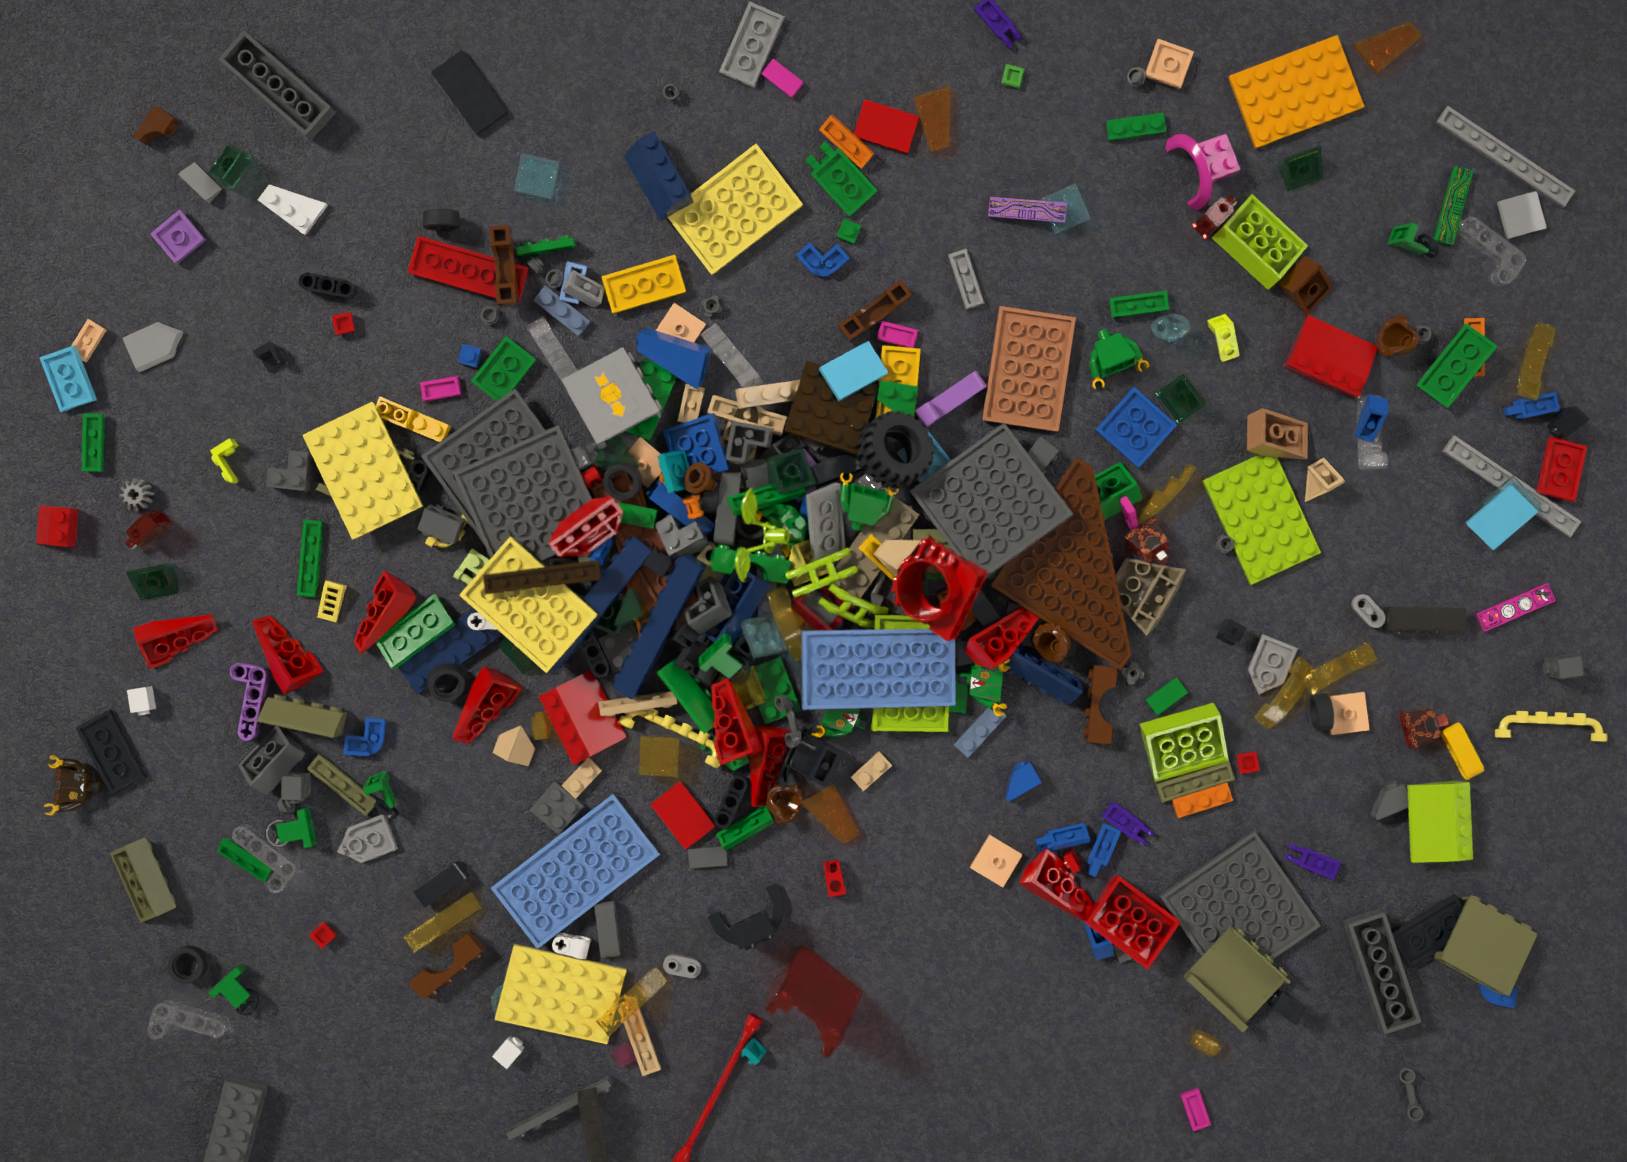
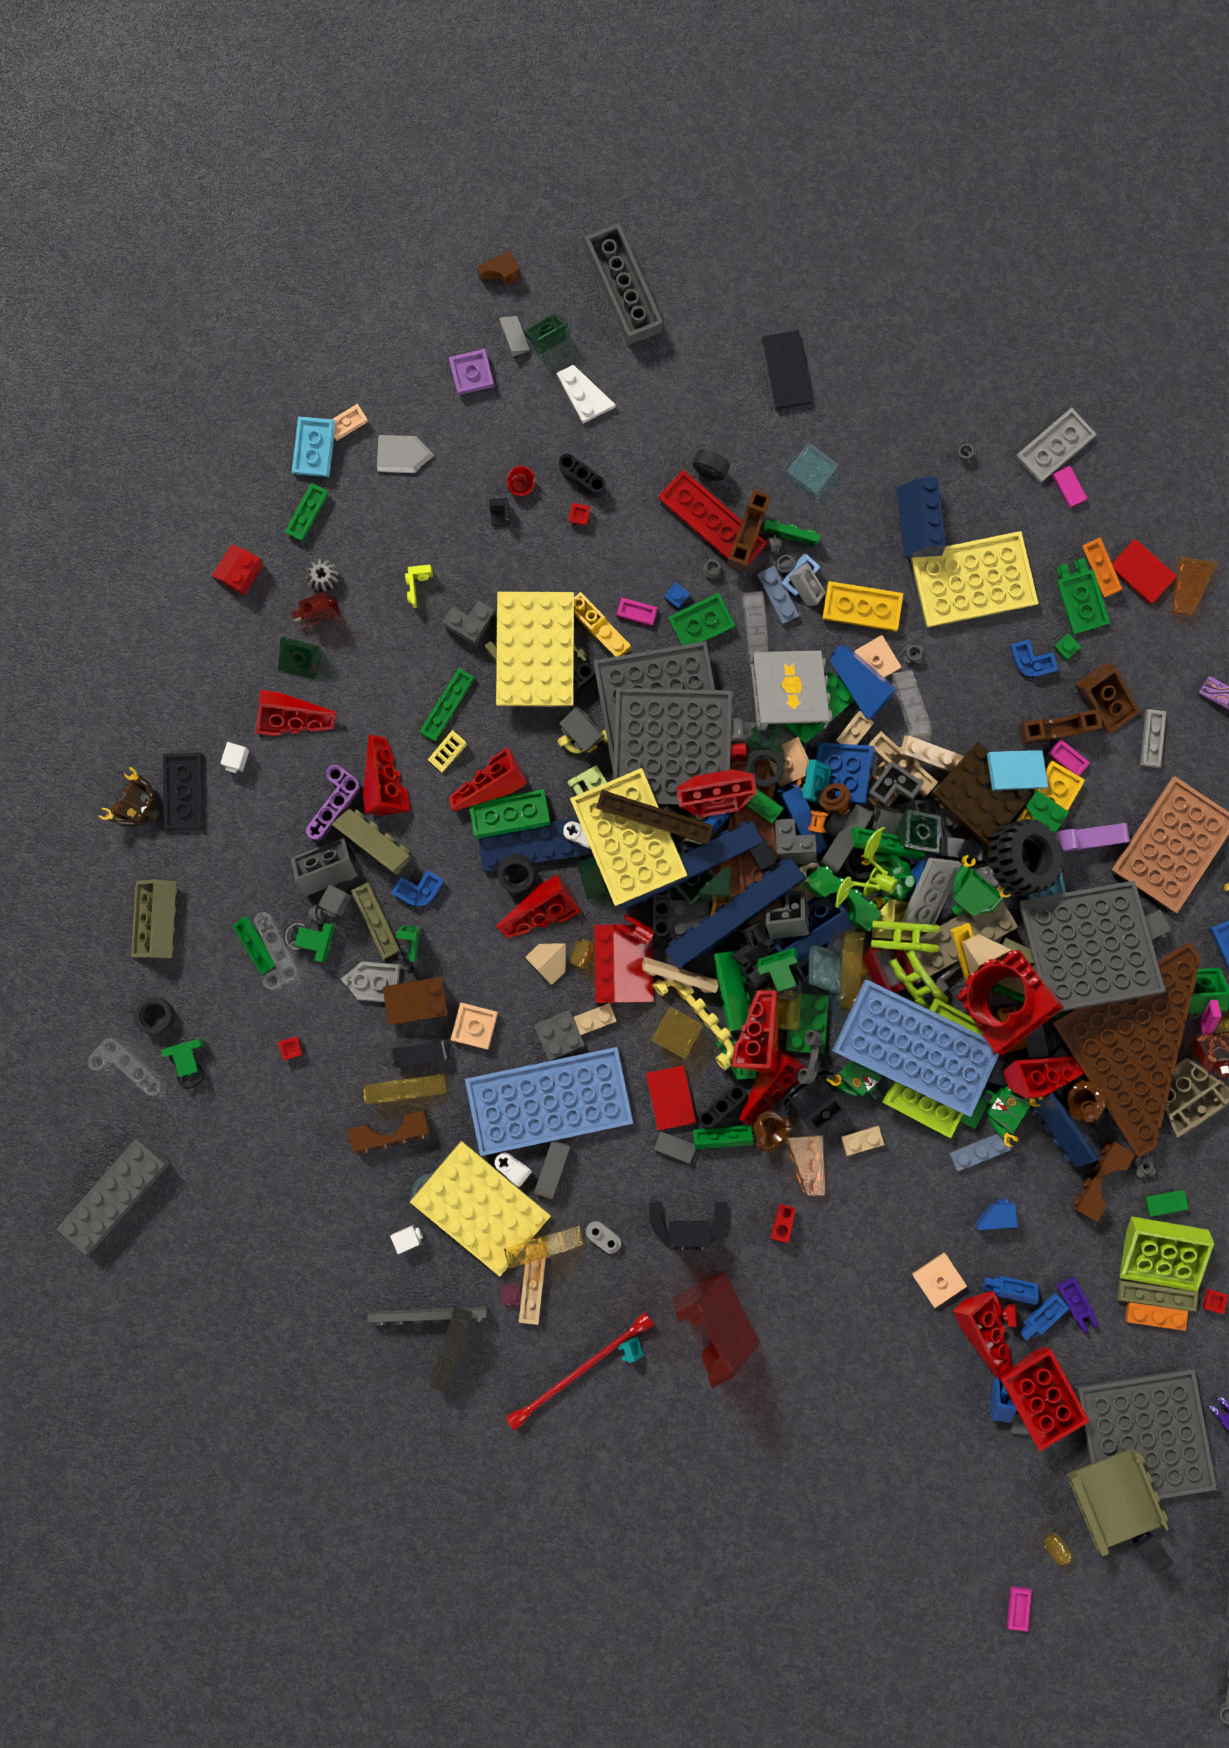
camera: 20 degrees right, 5 degrees down
(274, 319) = (520, 481): none -> red hair
(412, 840) = (415, 1001): none -> reddish brown slope
(477, 836) = (474, 1026): none -> light nougat plate
(579, 682) = (636, 930): none -> red hinge
(906, 261) = (1107, 691): none -> reddish brown slope

